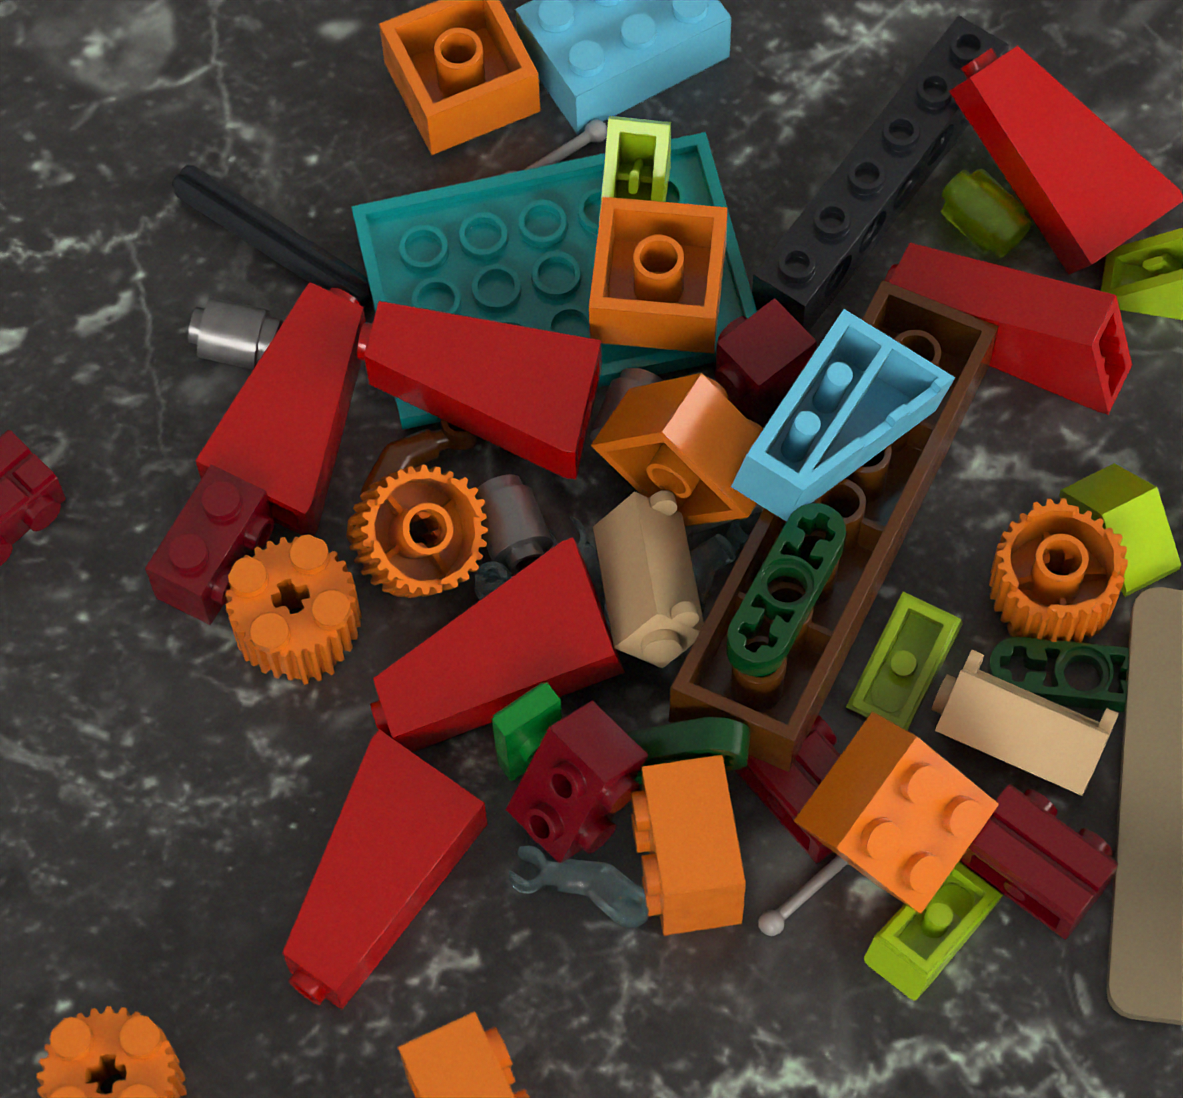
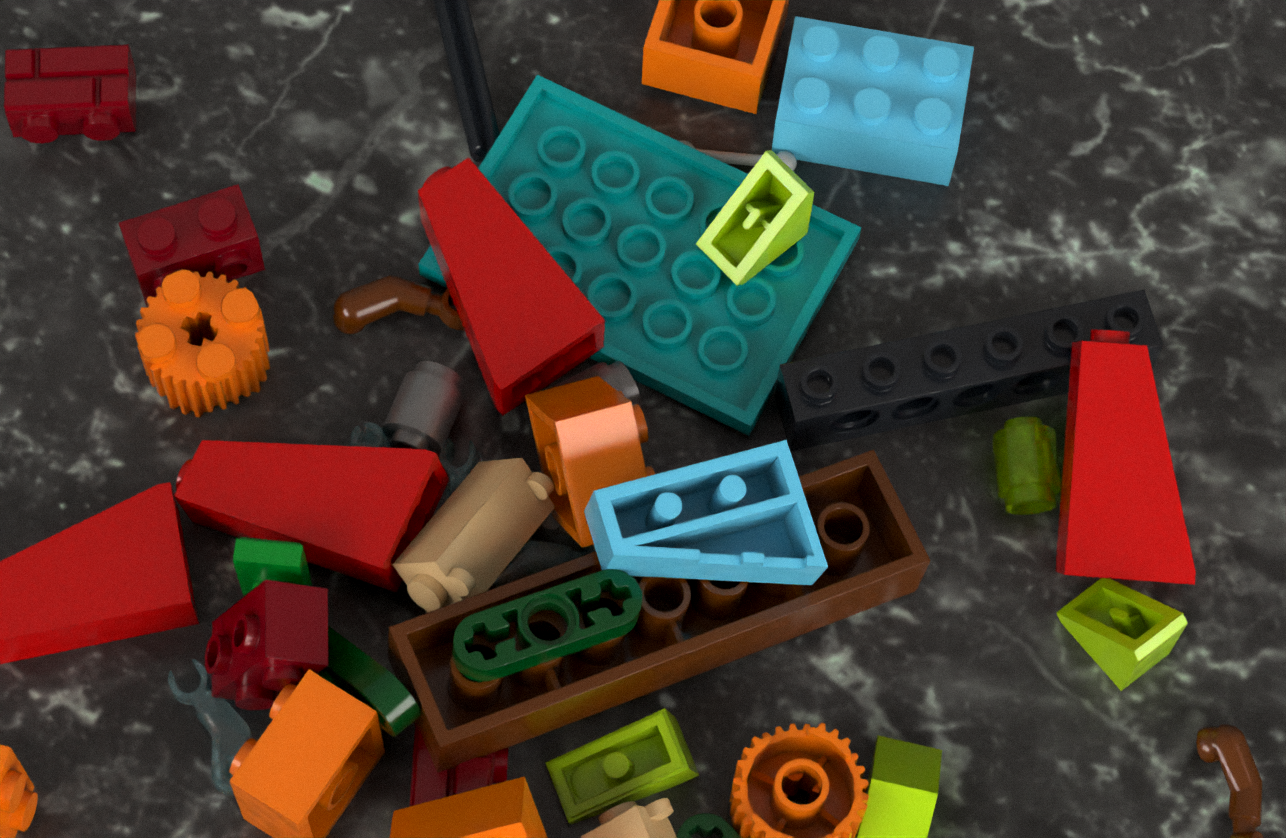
camera: 35 degrees right, 0 degrees up
(232, 332) = (364, 104): flat silver brick -> none
(294, 409) = (344, 195): red slope -> none
(383, 538) = (316, 383): orange brick -> none
(658, 274) = (701, 305): orange brick -> none
(762, 360) = (713, 425): dark red brick -> none
(1047, 329) = (969, 582): red slope -> none

